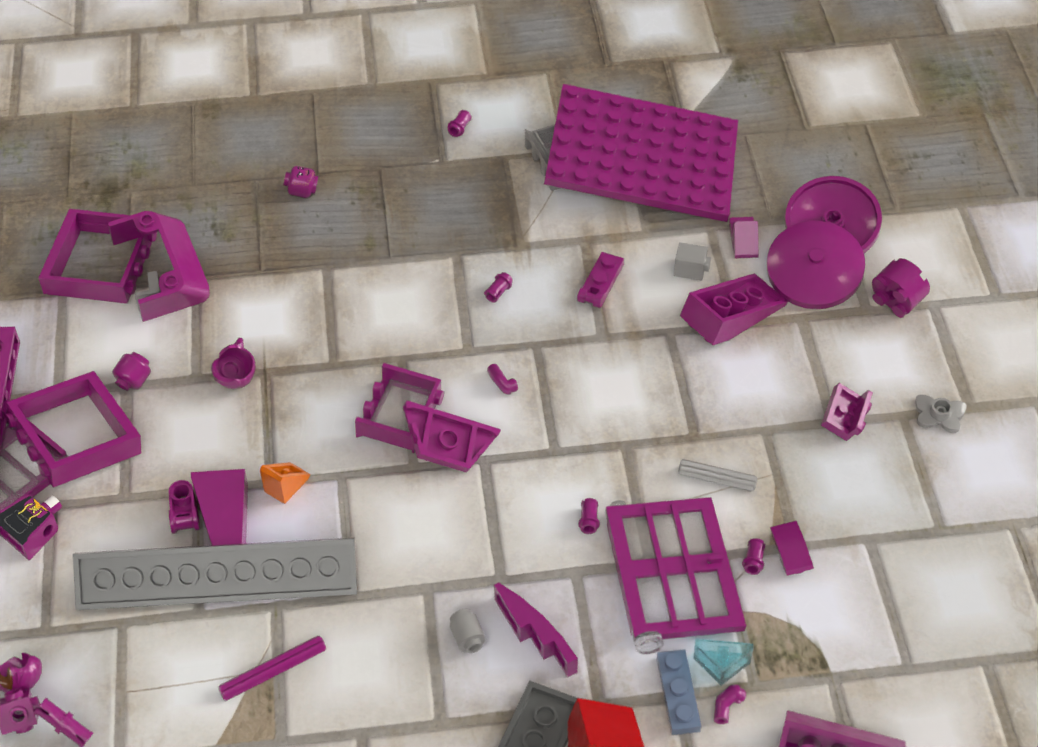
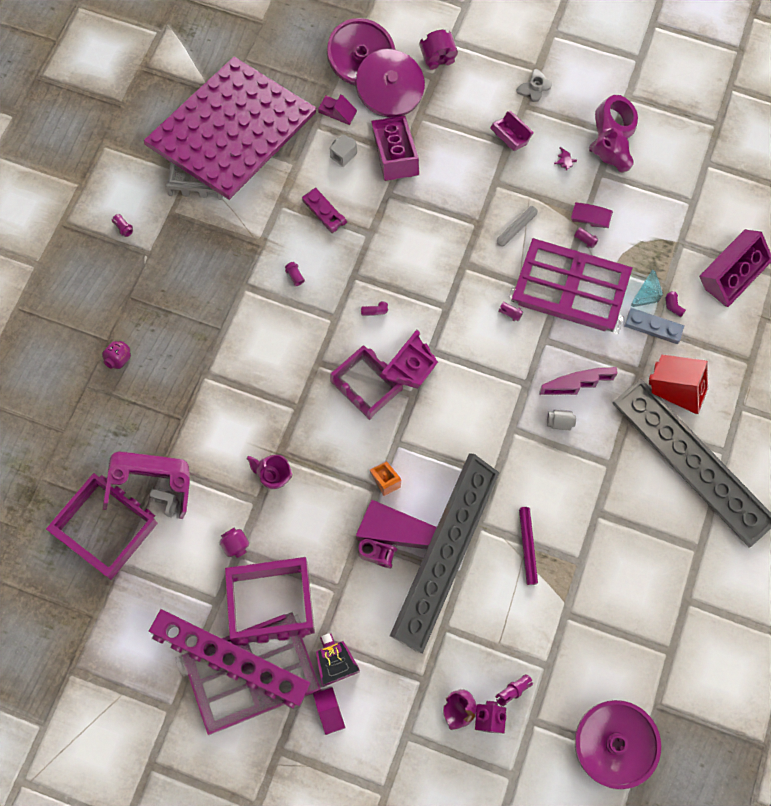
camera: 65 degrees left, 20 degrees up
(856, 491) = (565, 161): none -> magenta piece
(920, 517) = (612, 138): none -> magenta animal

